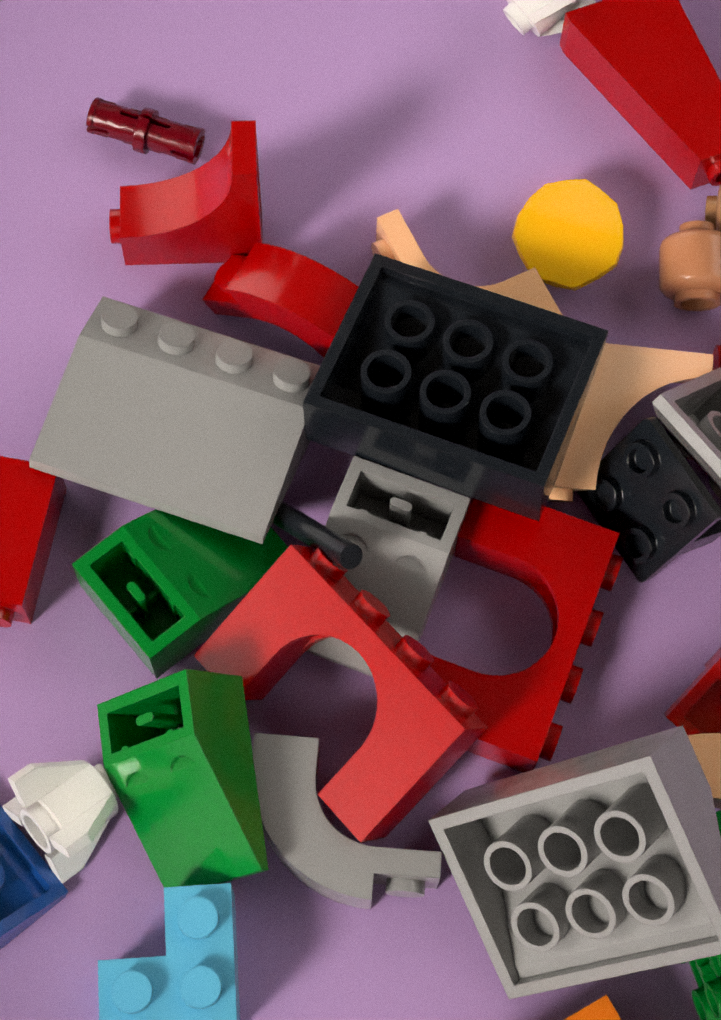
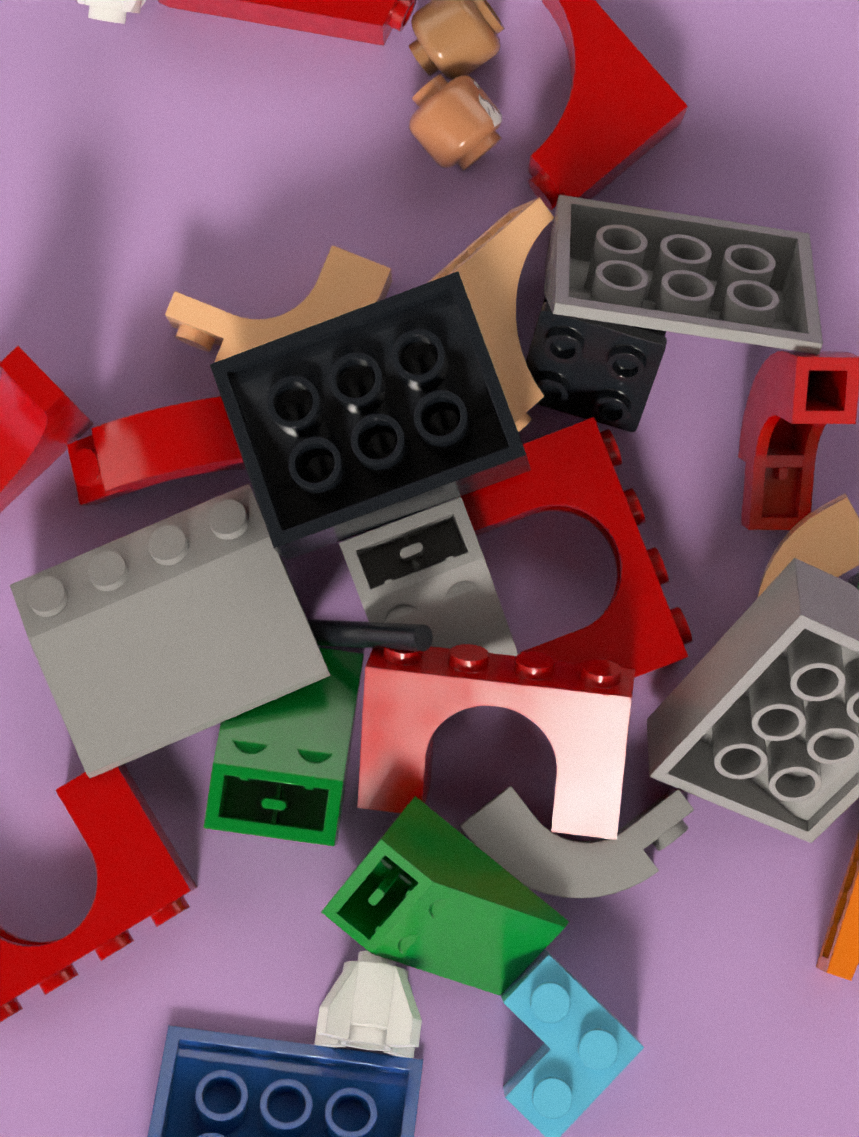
camera: 40 degrees left, 15 degrees up
(569, 233) = (329, 185): yellow hat -> none

